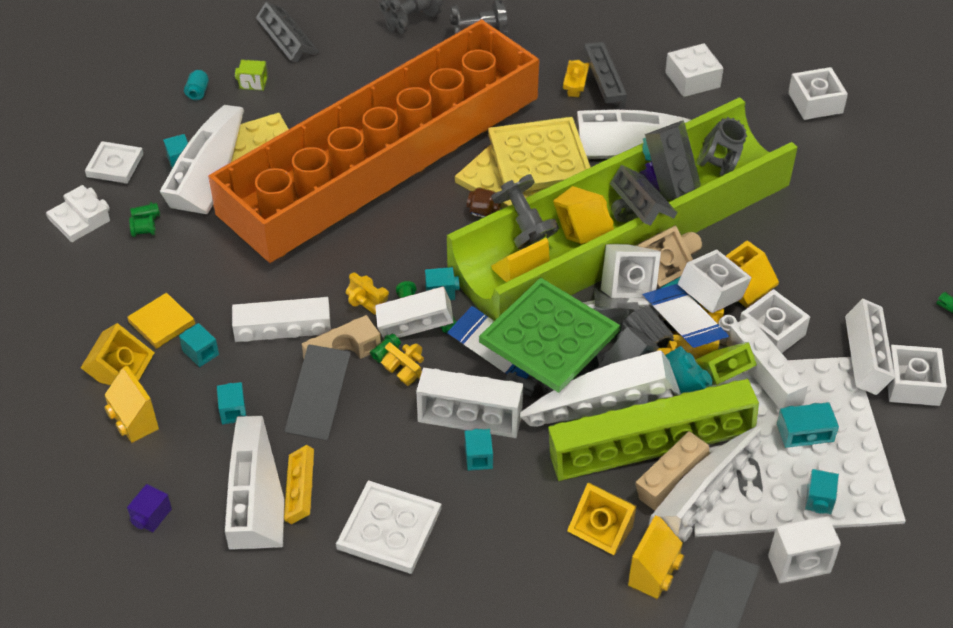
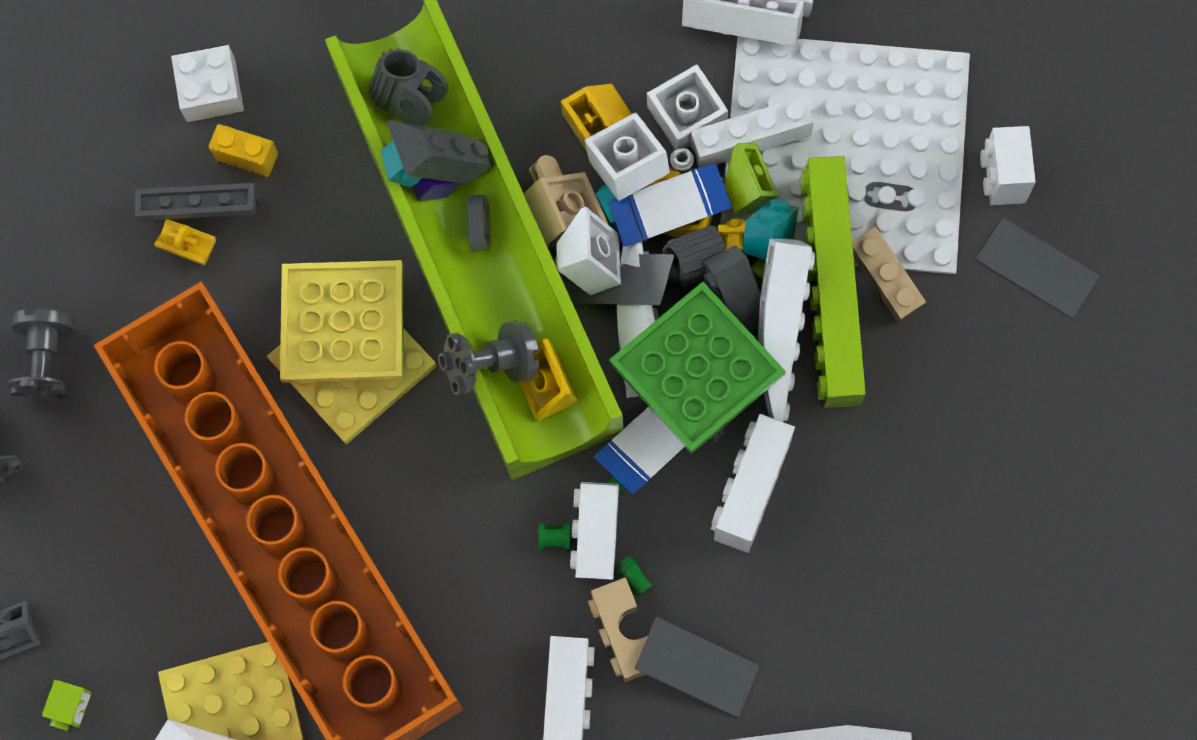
camera: 75 degrees left, 25 degrees up
(299, 484) = (831, 704): yellow plate -> none
(363, 292) = (541, 591): yellow hips -> none
(389, 527) = (904, 606): white plate -> none
(396, 357) = (677, 547): yellow hips -> none
(442, 278) = (543, 490): teal brick -> none
(478, 449) = (811, 486): teal brick -> none
(481, 203) = (409, 412): reddish brown head -> none
(583, 215) = (499, 286): yellow slope -> none
(602, 519) = (933, 368): yellow slope -> none
(615, 131) = (318, 195): white wedge -> none
(640, 195) = (485, 209): dark grey fence -> none
(651, 91) = (243, 150): none -> yellow brick
(655, 559) = (996, 322): yellow slope -> none
(703, 484) = (925, 256): white wedge -> none
(807, 424) = (842, 114): teal brick -> none
(821, 491) = (937, 126): teal brick -> none

